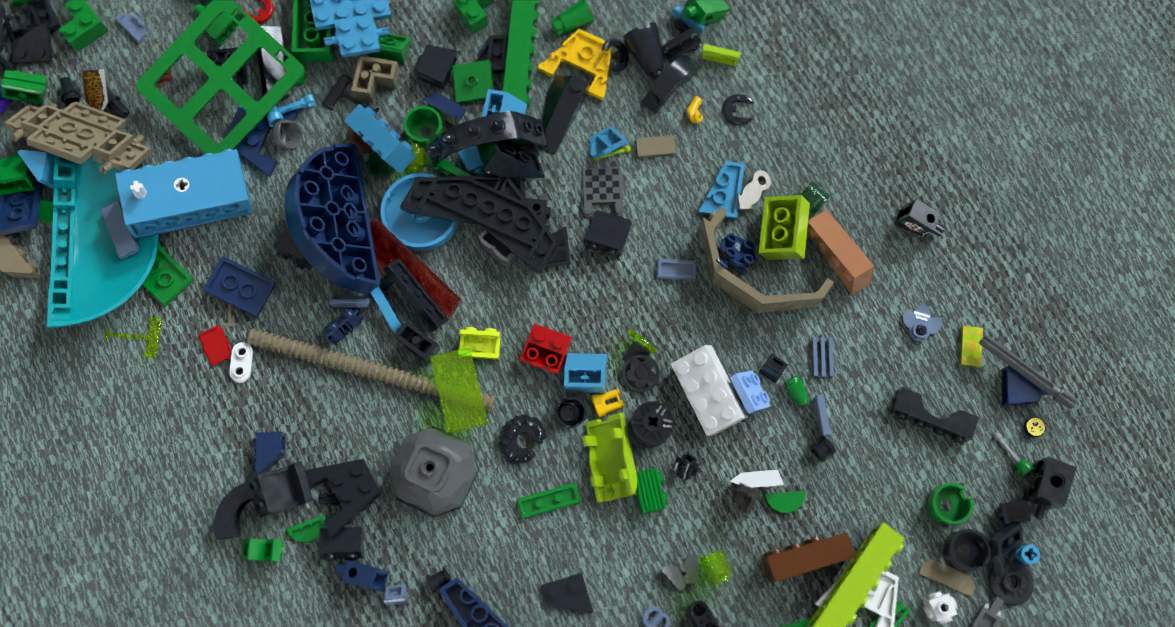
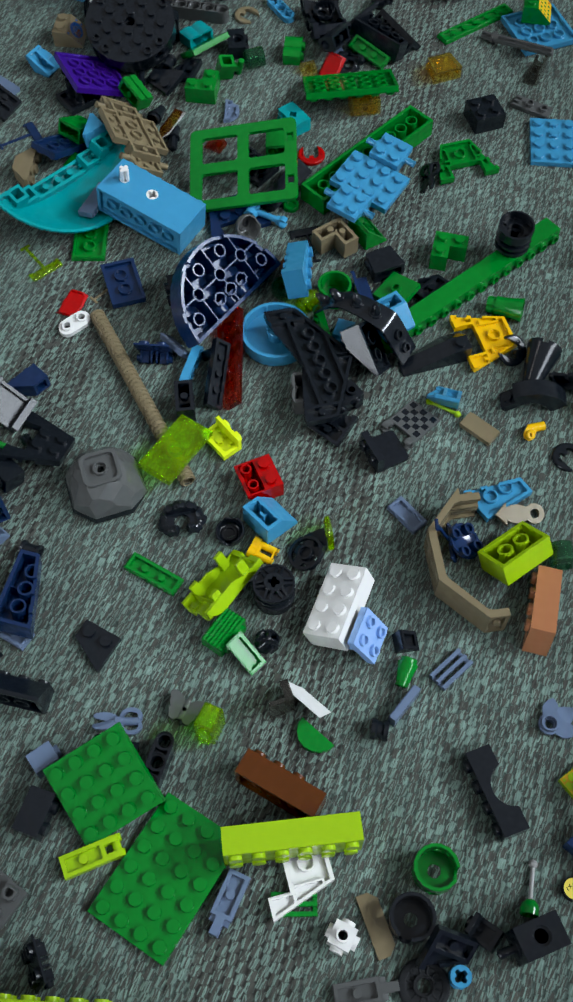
camera: 50 degrees right, 15 degrees down
(681, 490) = (245, 653): none -> tile

